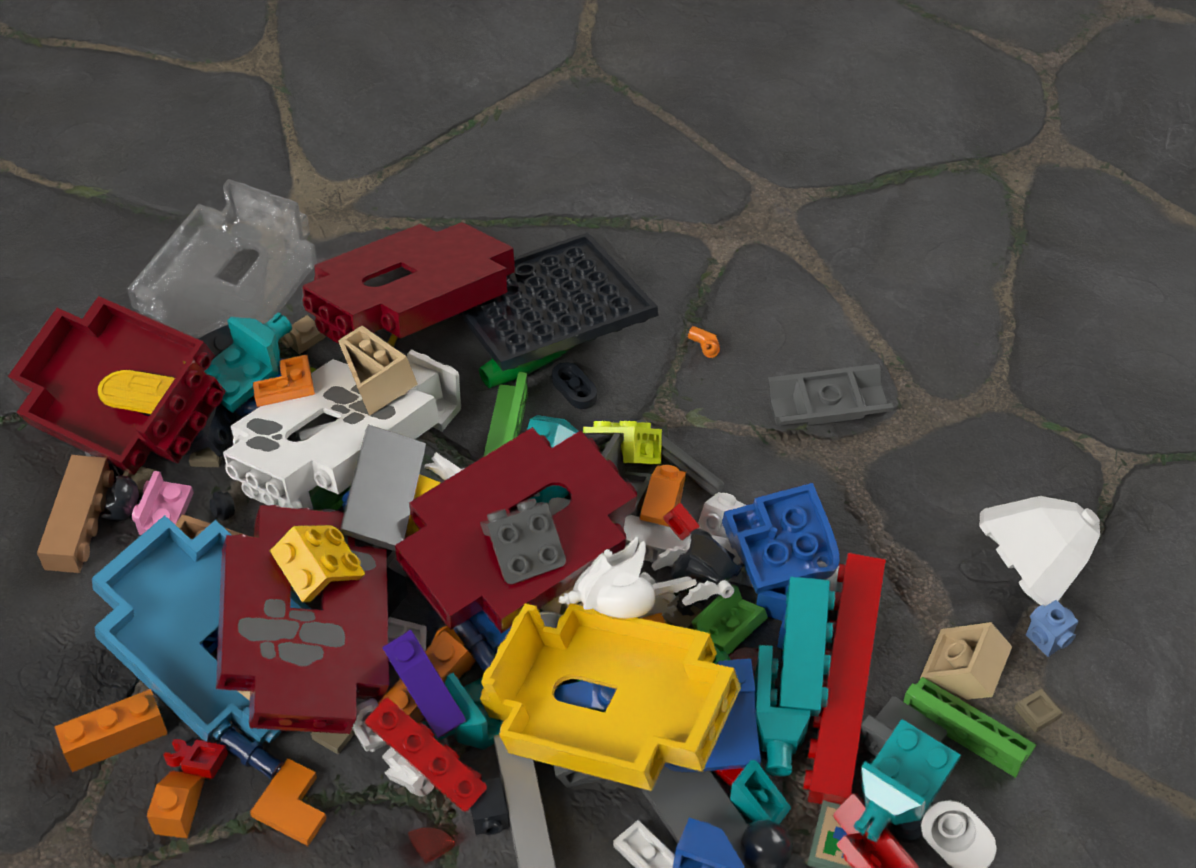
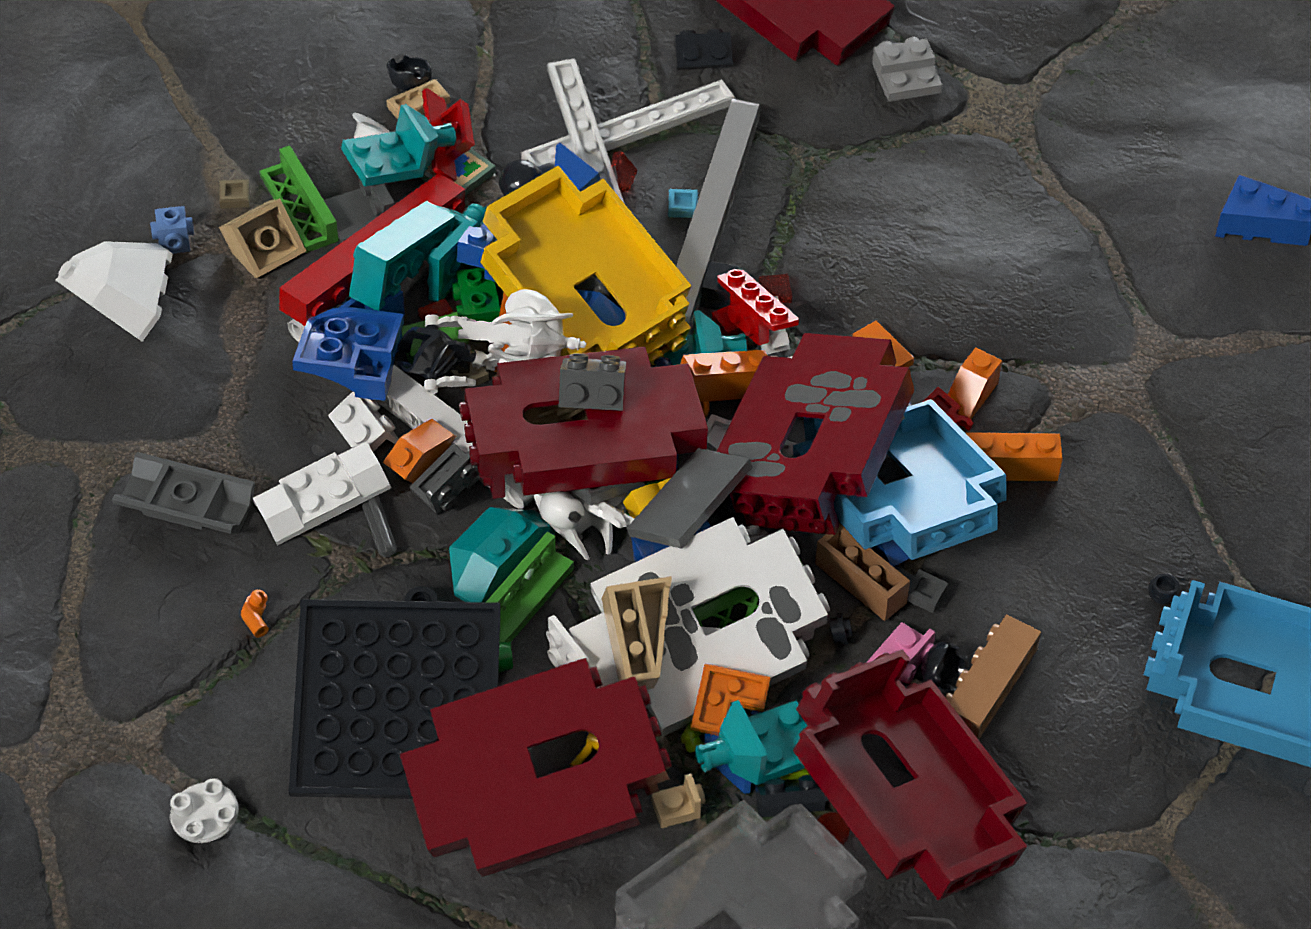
camera: 155 degrees left, 0 degrees up
(133, 390) = (890, 747): yellow window -> none
(314, 558) = (781, 428): yellow bracket -> none
(424, 684) = (736, 346): dark purple slope -> none
(638, 206) = (204, 811): none -> white dish
(640, 441) = (416, 519): neon yellow bracket -> none
(680, 521) = (426, 401): red tile -> none
(728, 440) = (321, 492): none -> white piece

